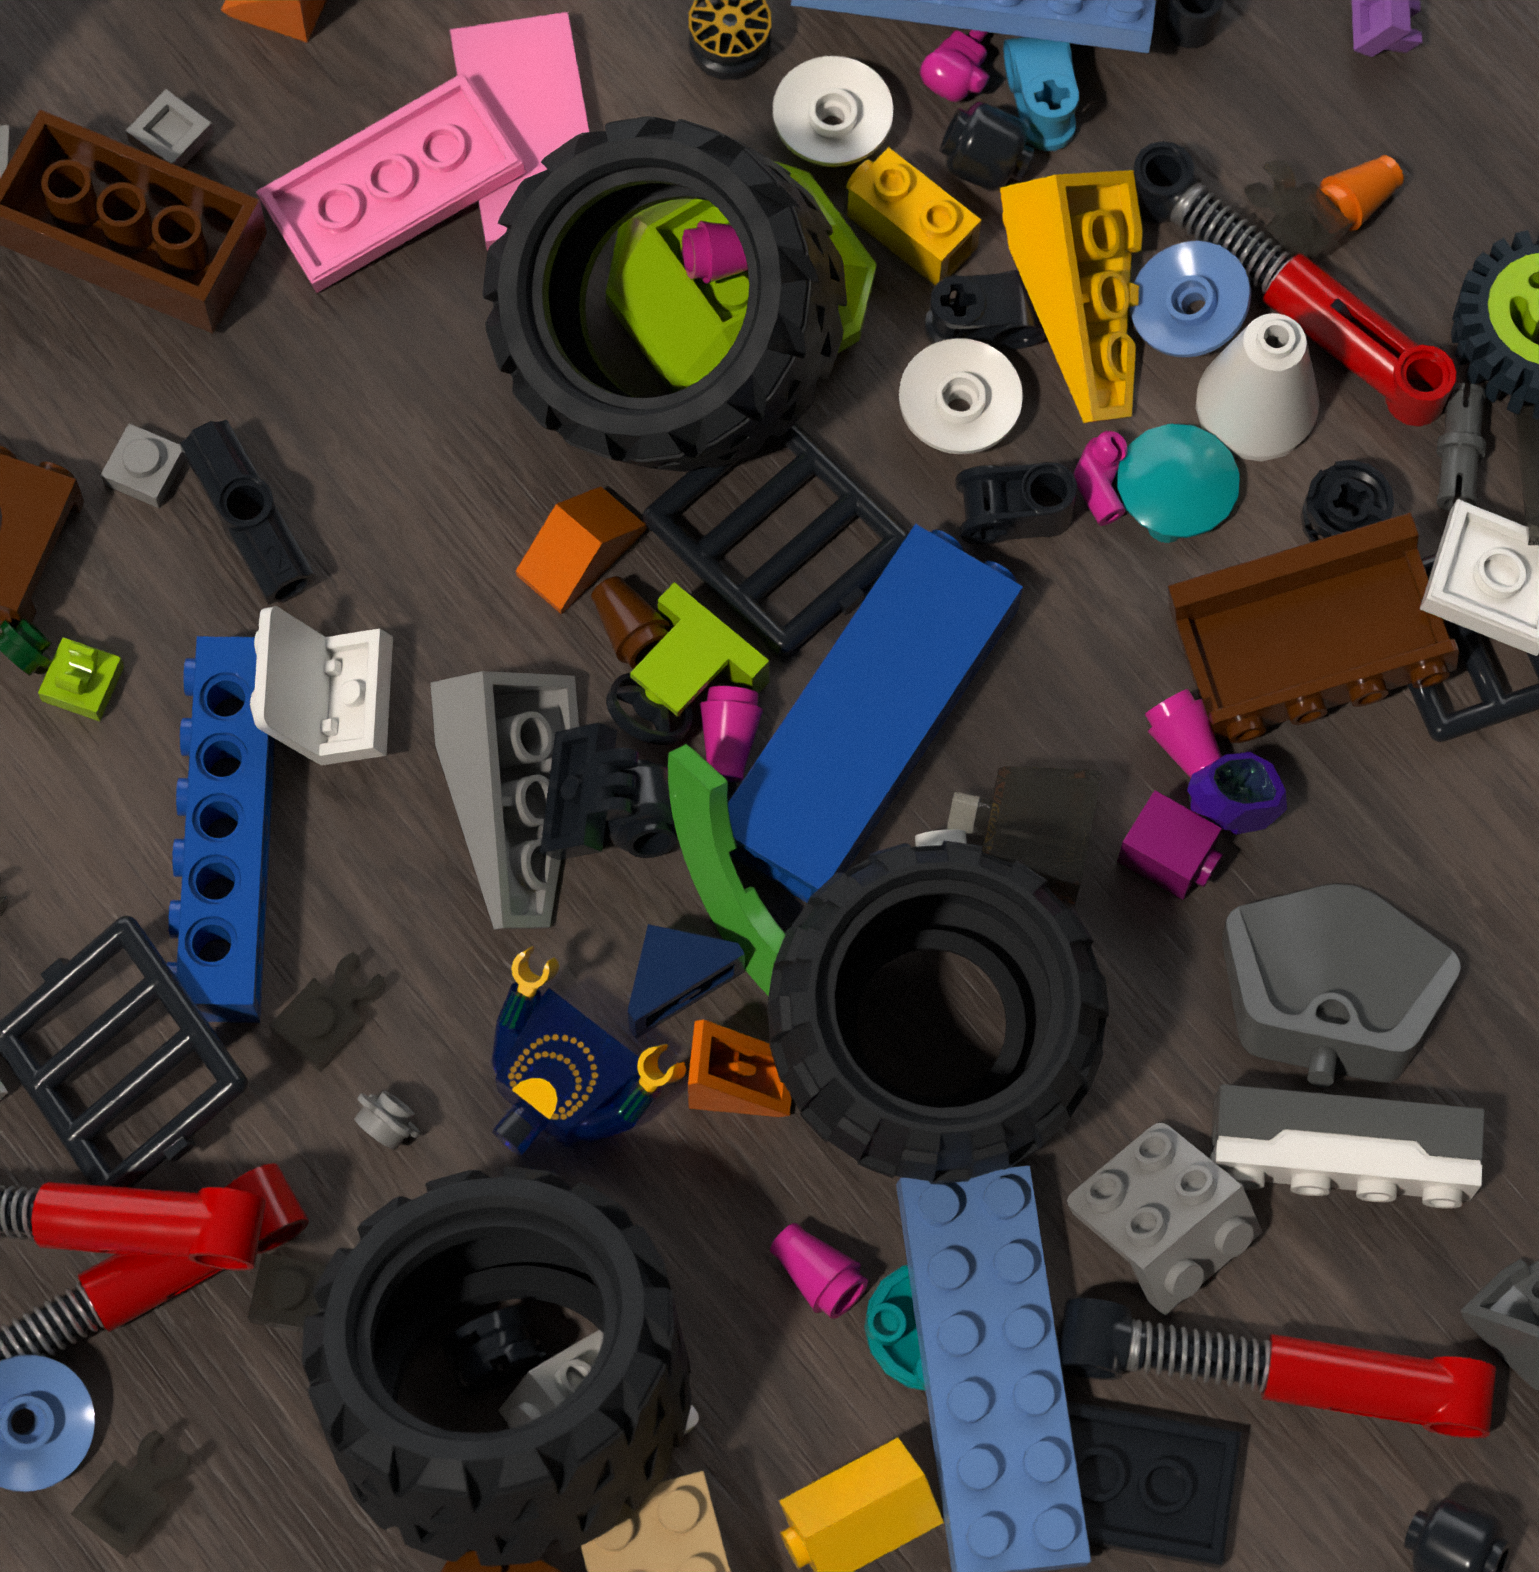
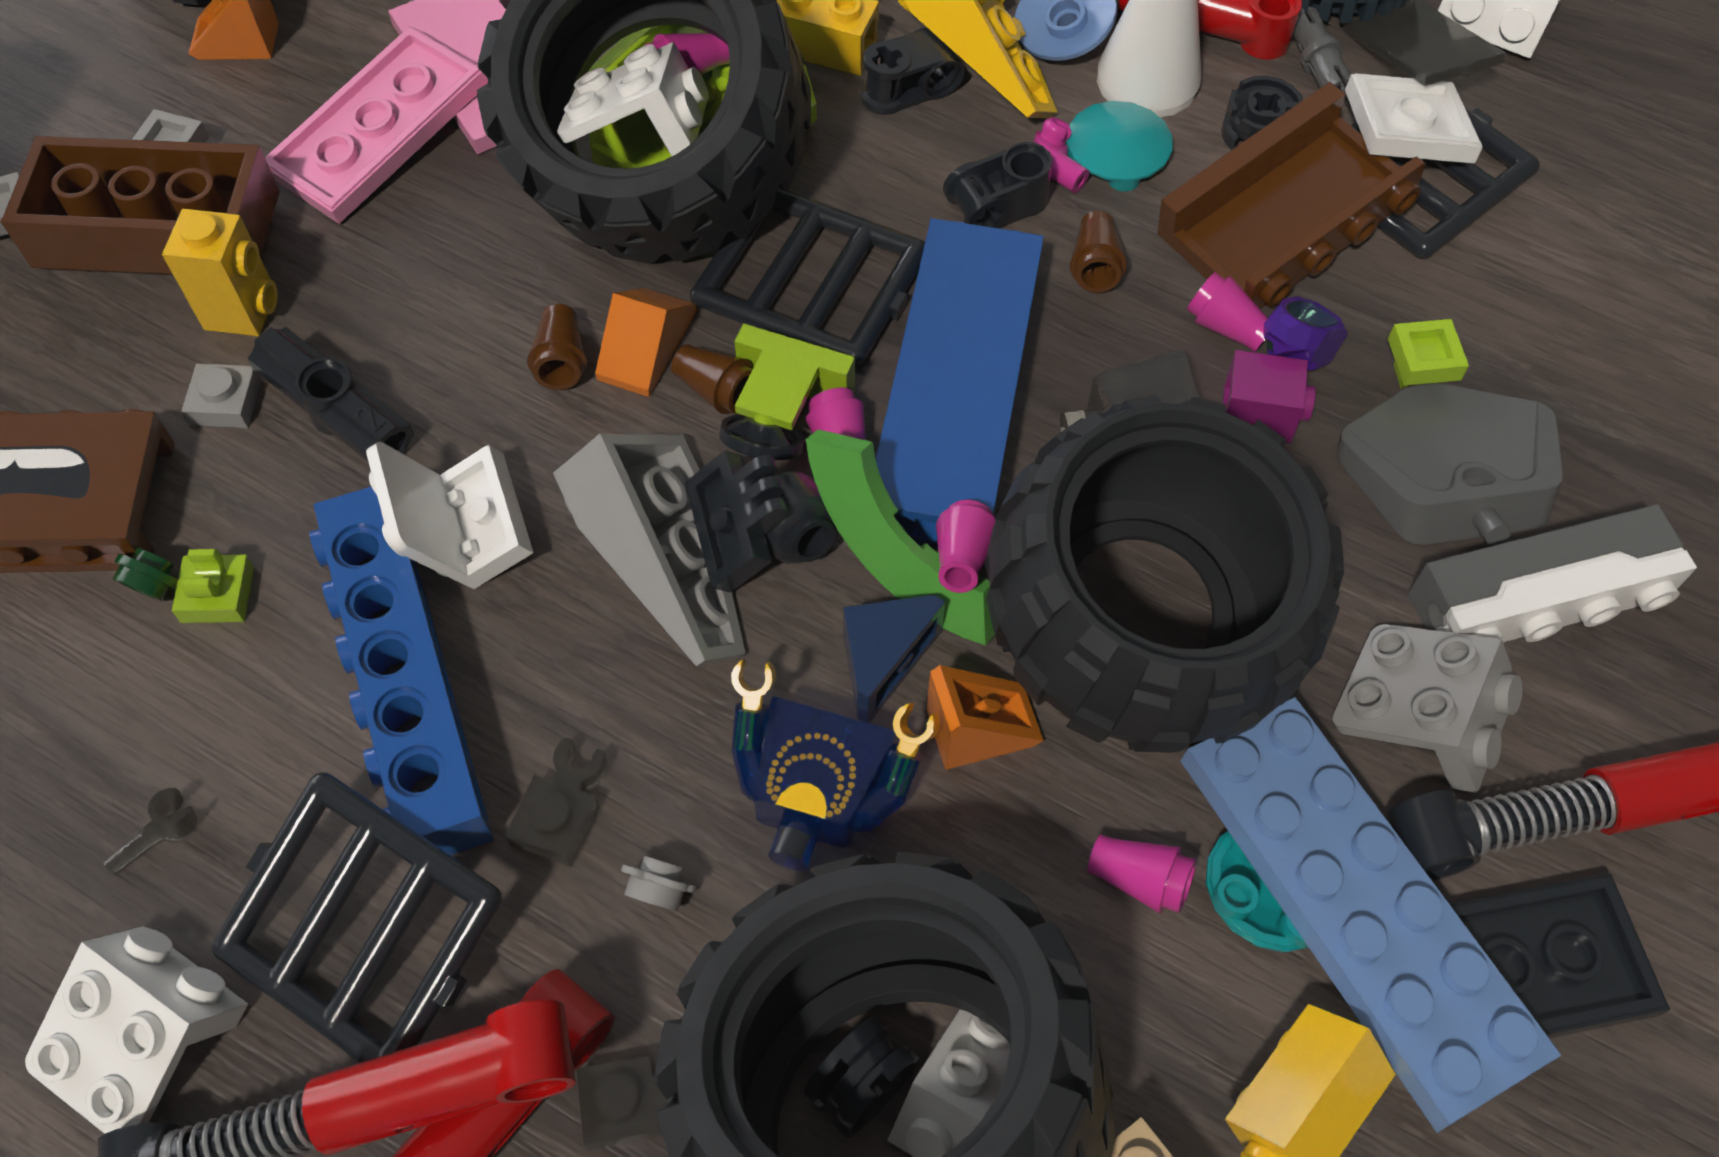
camera: 20 degrees left, 10 degrees down
(181, 338) = (220, 272): none -> yellow brick
(486, 532) = (557, 349): none -> reddish brown cone
(652, 298) = (647, 80): none -> white bracket
(779, 904) = (963, 543): none -> dark pink cone
(966, 372) = (918, 130): white dish -> none
(1084, 615) = (1098, 254): none -> reddish brown cone
(1359, 859) = (1427, 352): none -> lime tile

